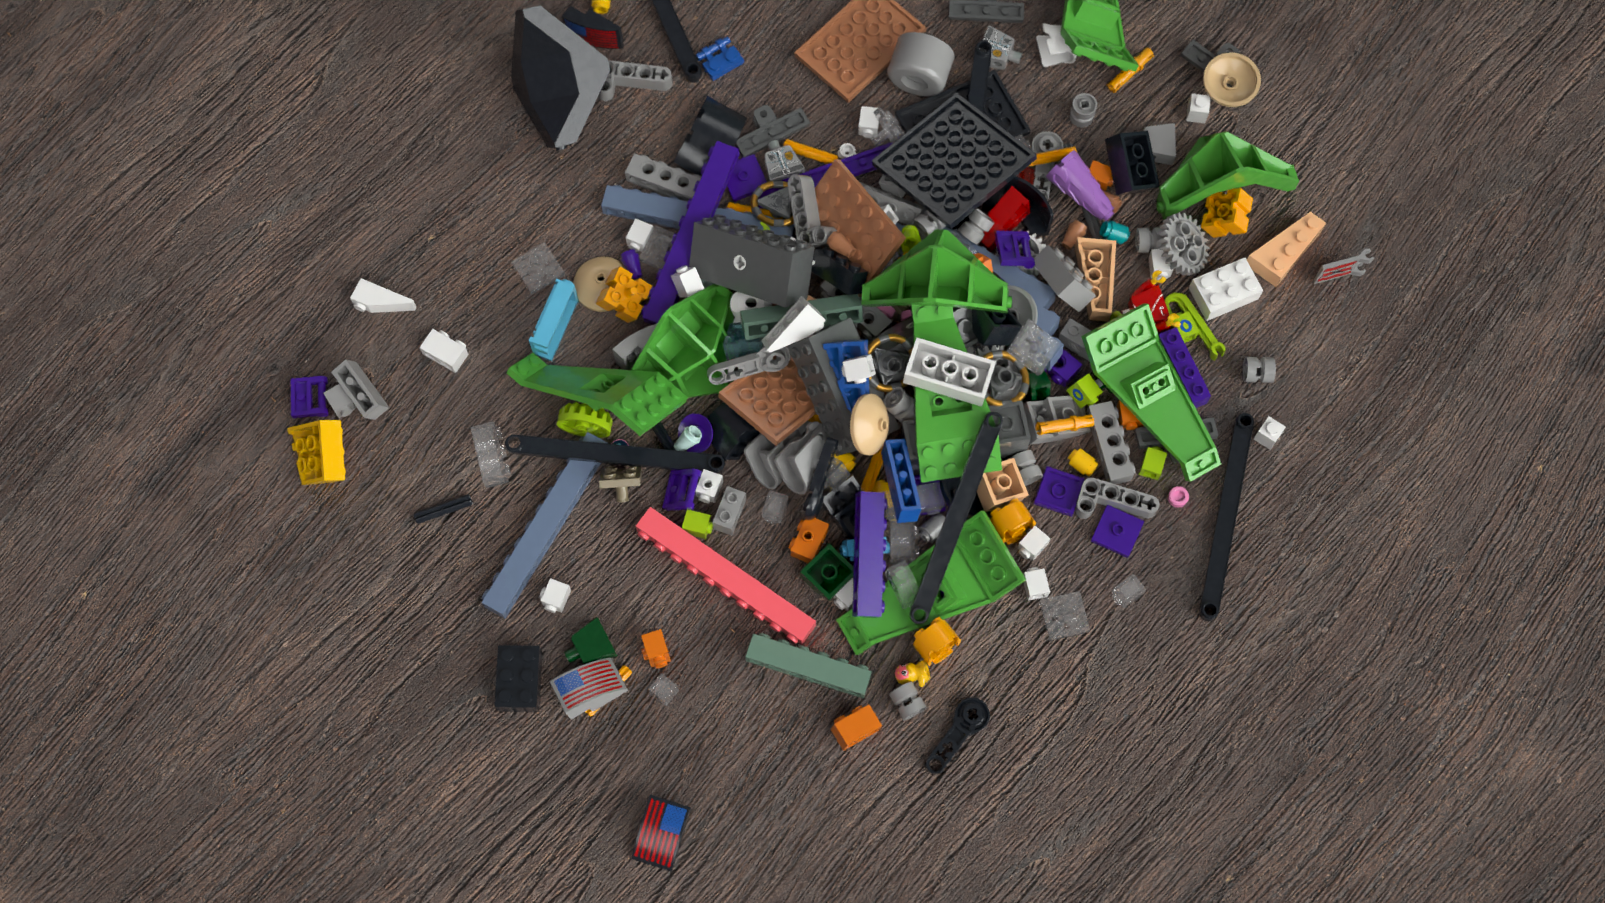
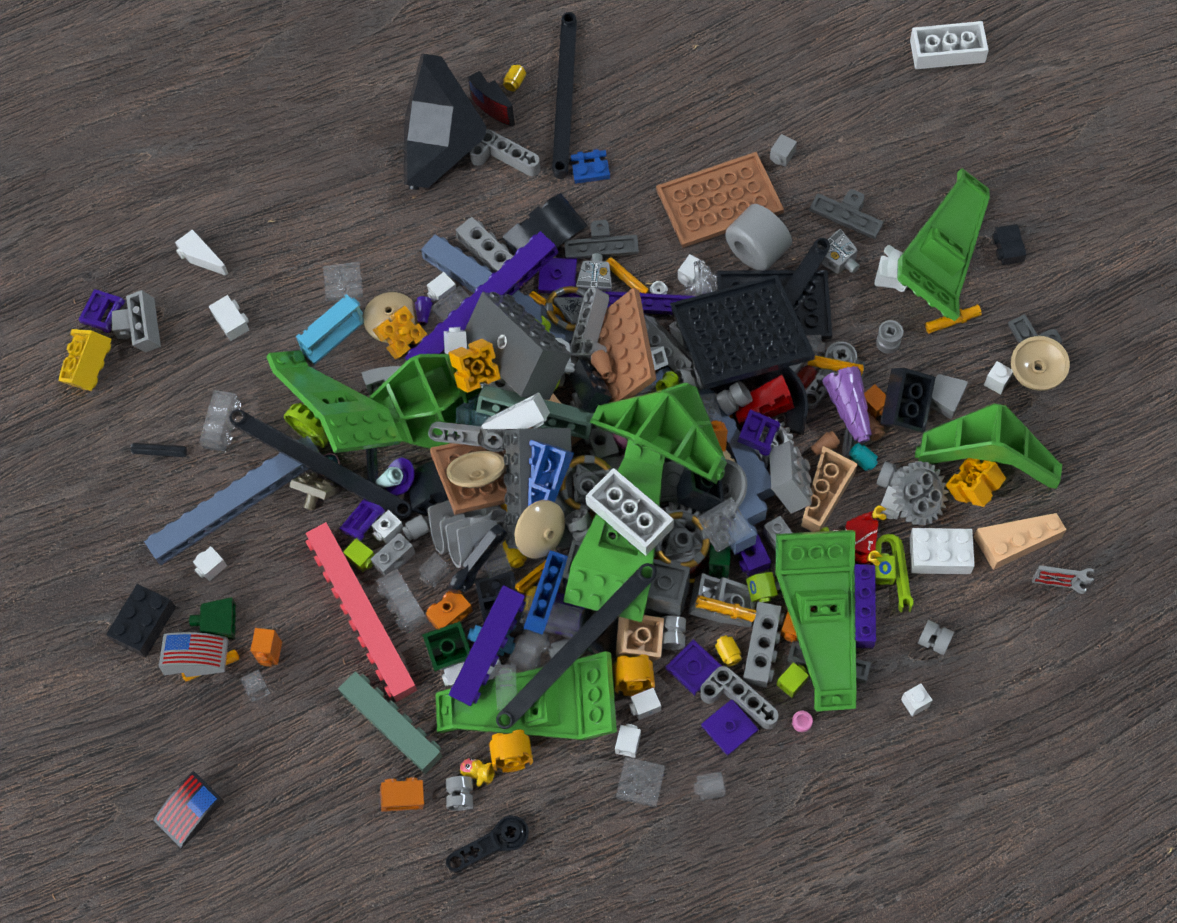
camera: 30 degrees right, 5 degrees down
(724, 296) = (474, 365): none -> light orange brick
(737, 474) = (416, 527): none -> light grey brick
(759, 550) = (401, 601): none -> clear brick
(776, 394) = (476, 469): none -> tan dish
(858, 368) = (550, 474): white brick -> none
(1226, 517) = (837, 759): black piece -> none

